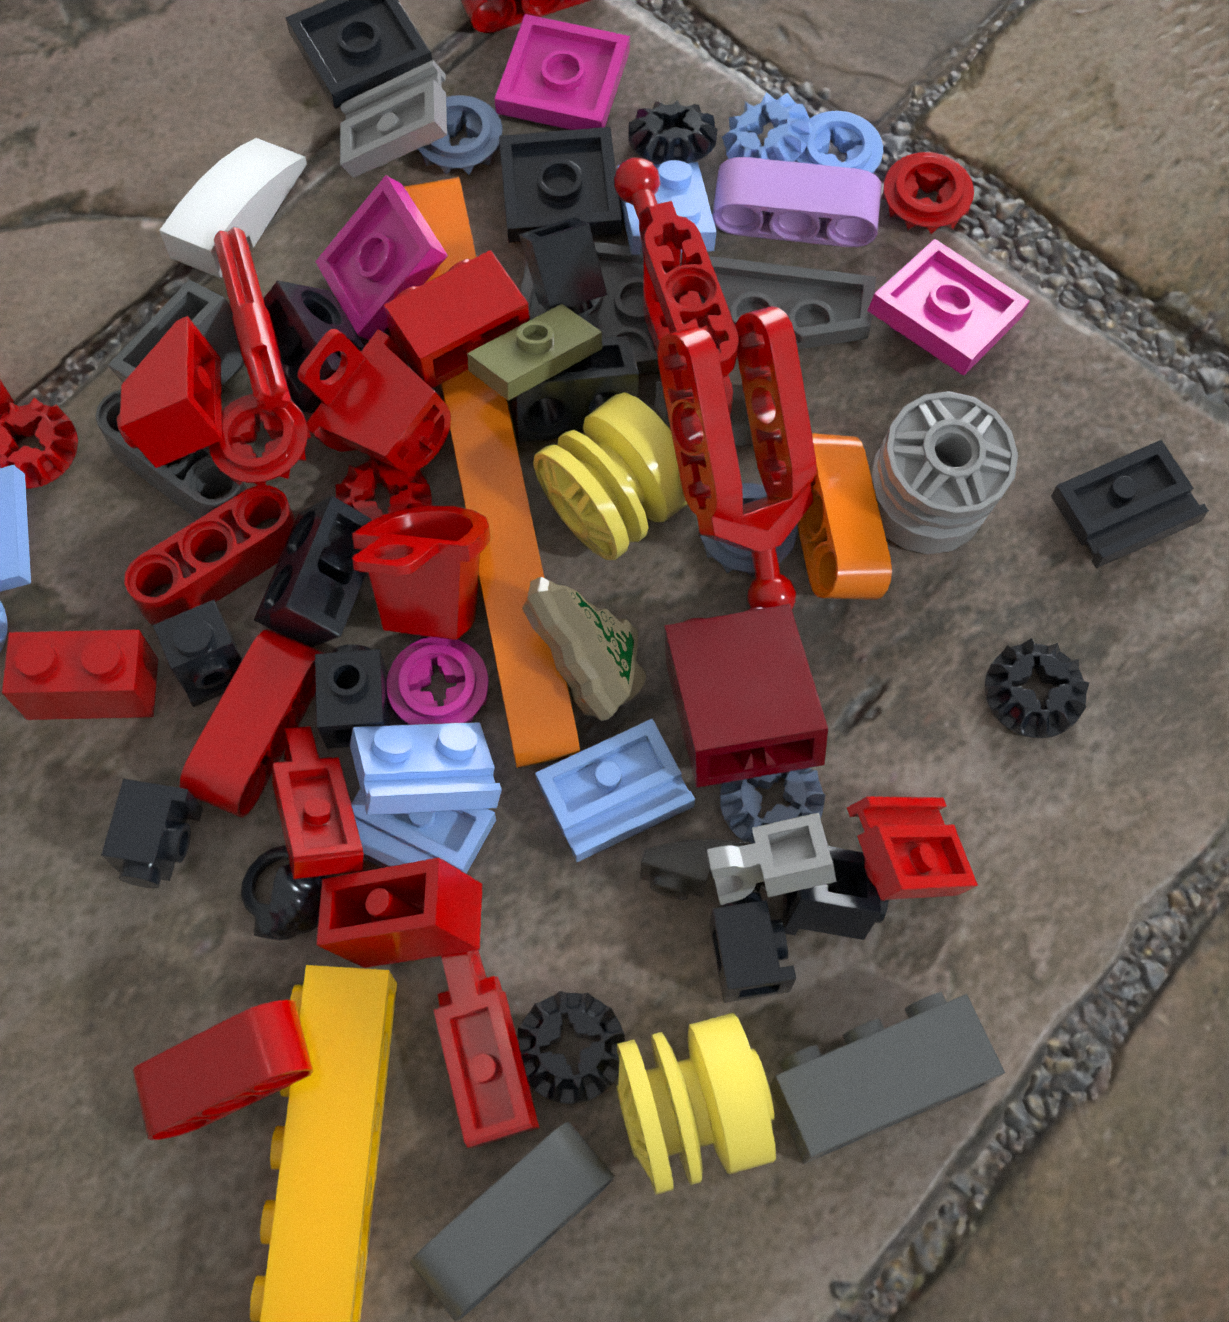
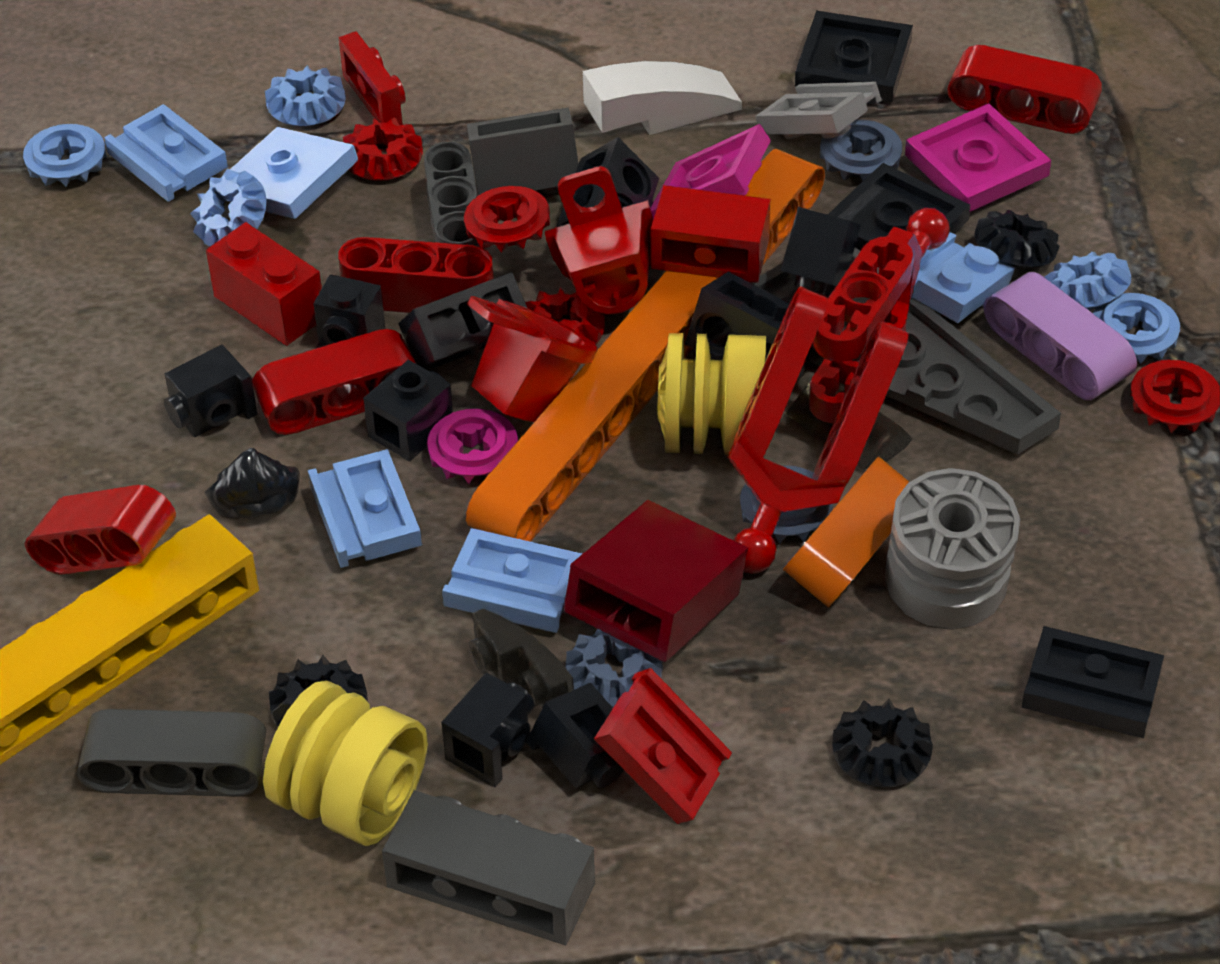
camera: 45 degrees right, 20 degrees down
(173, 397) = (479, 155): red slope -> none
(251, 320) = (576, 147): red axle -> none
(315, 810) = (309, 439): red hinge -> none
(400, 913) = (294, 528): red brick -> none
(424, 768) = (404, 470): light blue plate -> none
(482, 1054) = (260, 651): red hinge -> none
(534, 351) = (736, 278): olive plate -> none
(588, 647) = (582, 473): dark tan rock -> none
(784, 856) = (557, 666): light grey plate -> none
(948, 306) = (1096, 466): plate -> none

